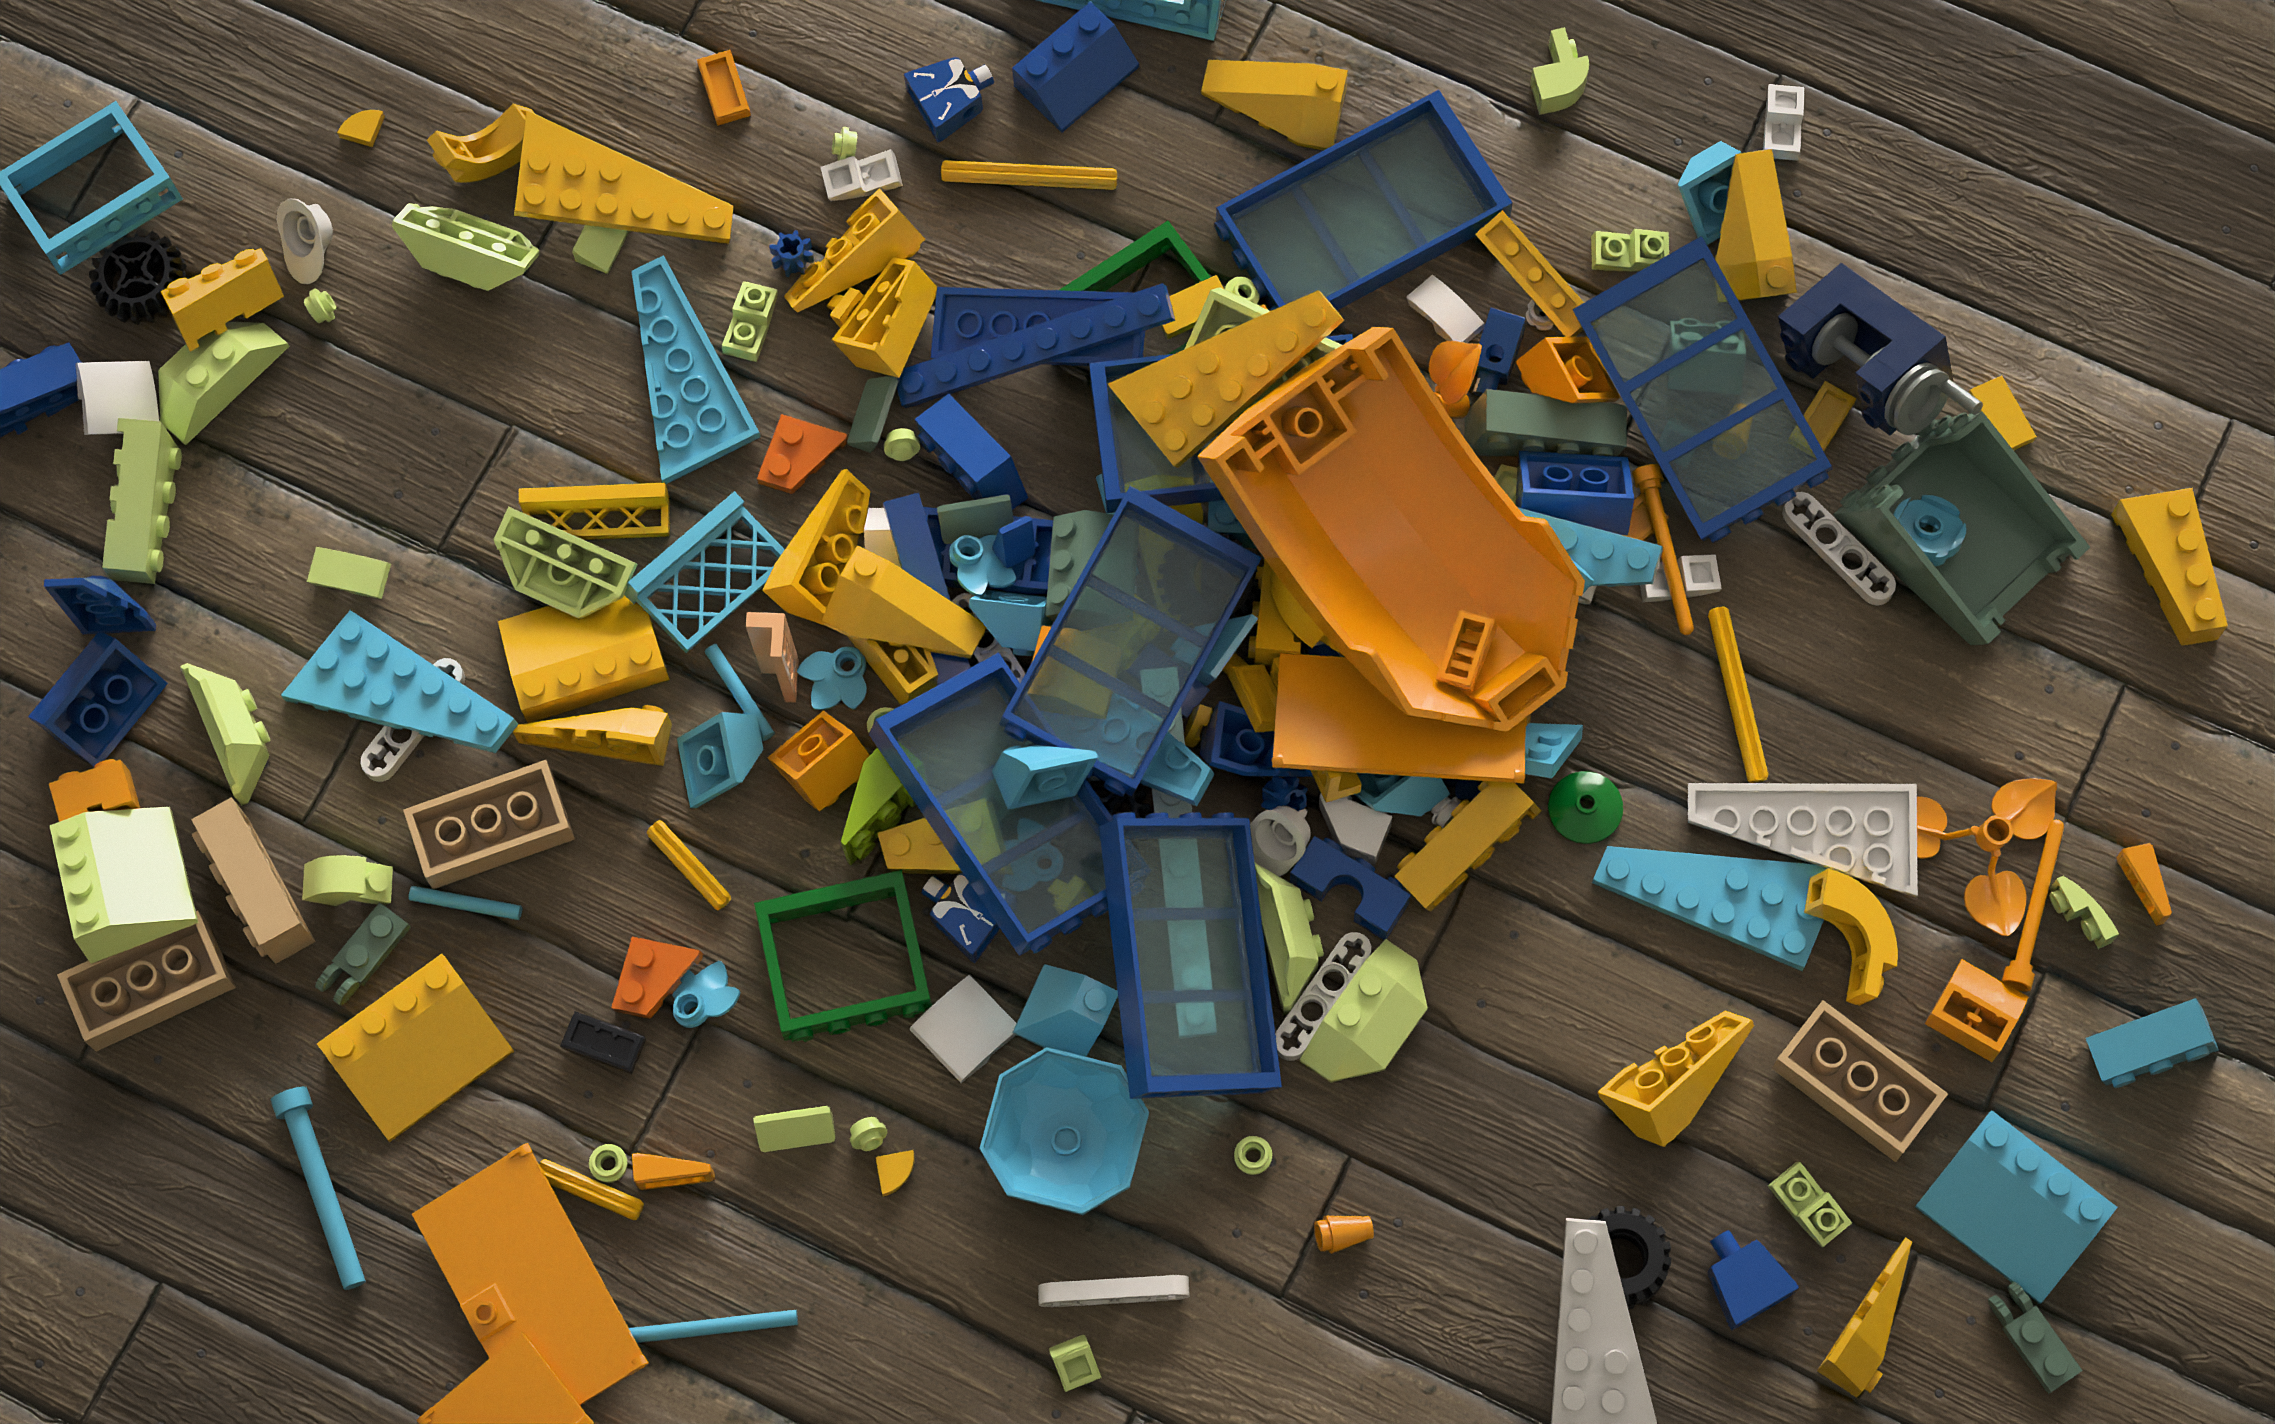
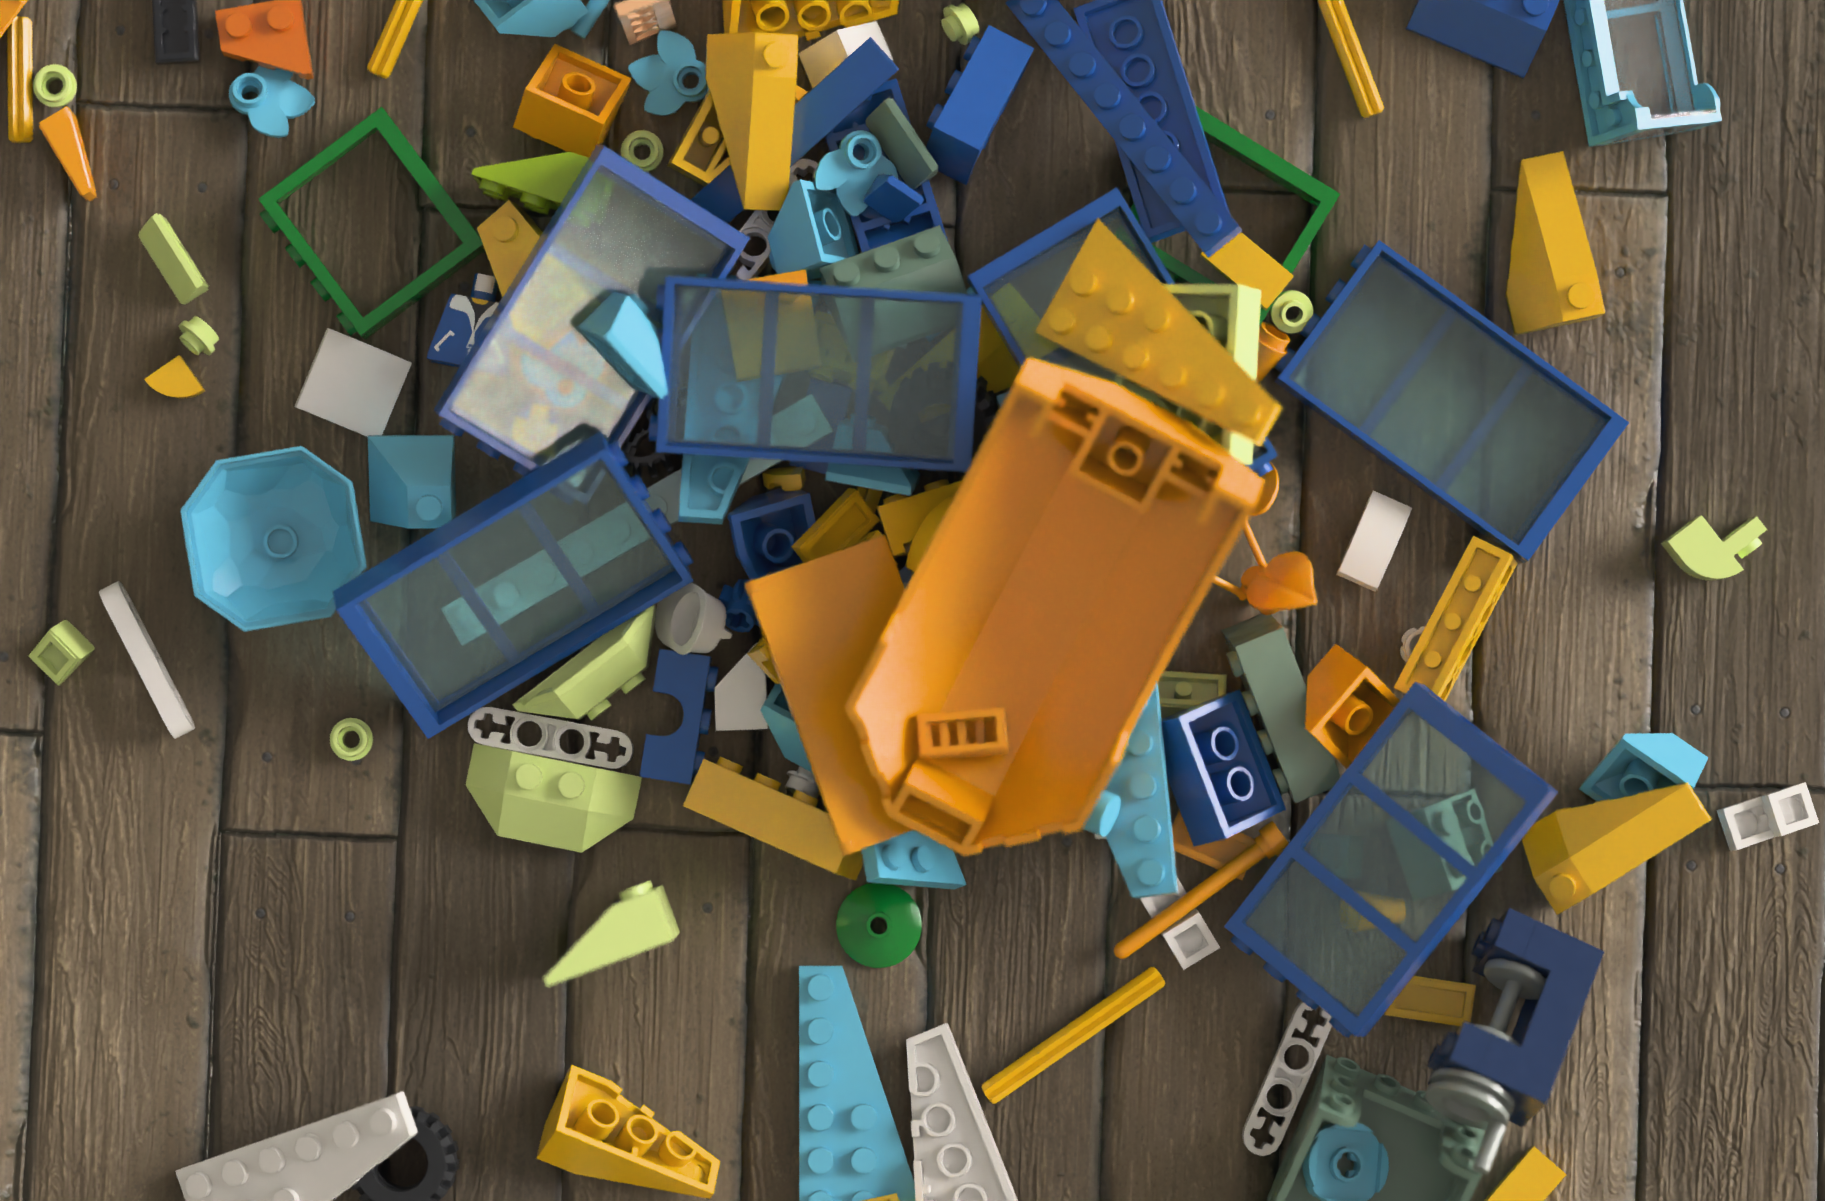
camera: 60 degrees right, 15 degrees up
(1341, 1232) = (309, 865): light orange cone -> none
(1499, 340) = (1364, 617): blue torso -> none
(1507, 988) = (629, 927): none -> yellowish green slope
(1628, 251) = (1537, 711): yellowish green slope -> none

